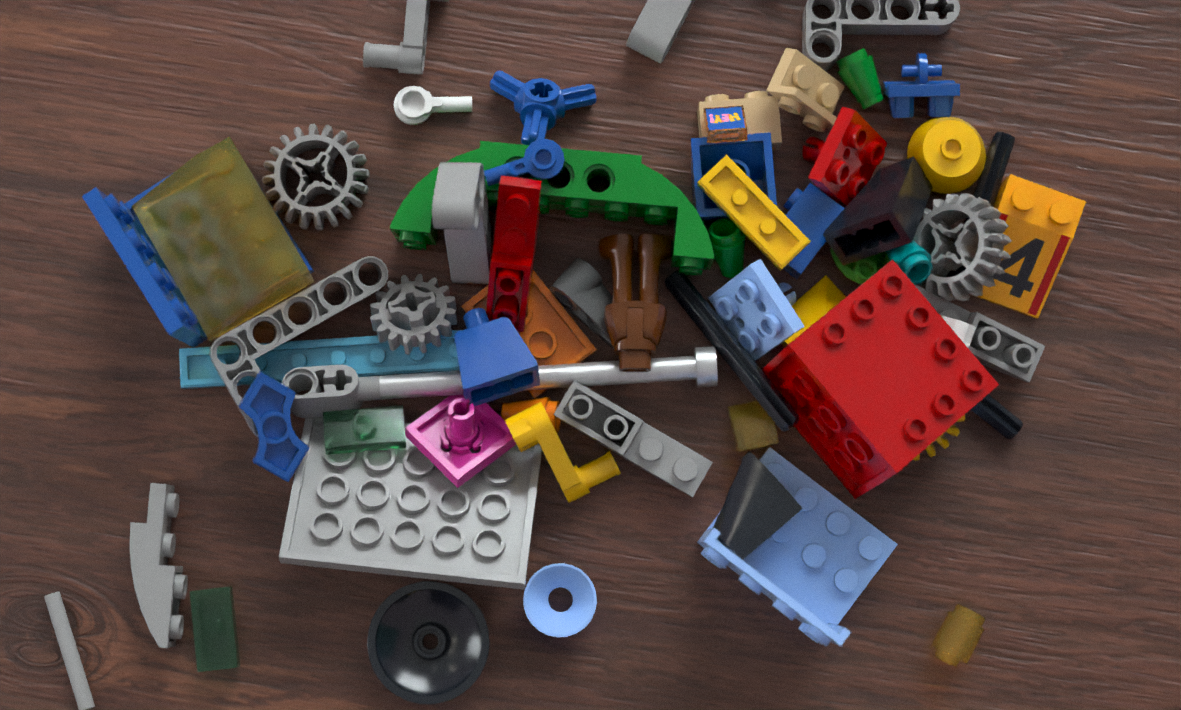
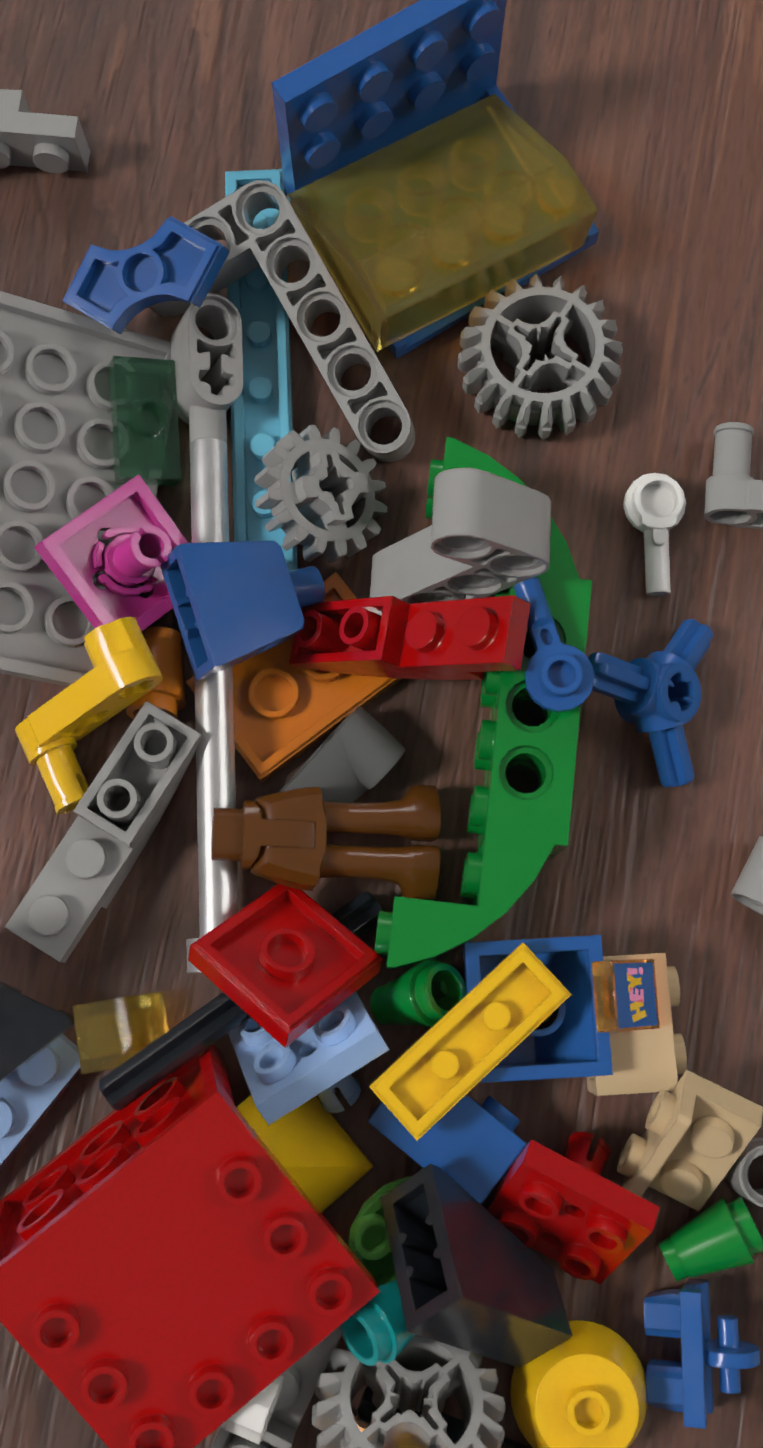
camera: 90 degrees right, 5 degrees down
(710, 321) = (285, 961): none -> red tile

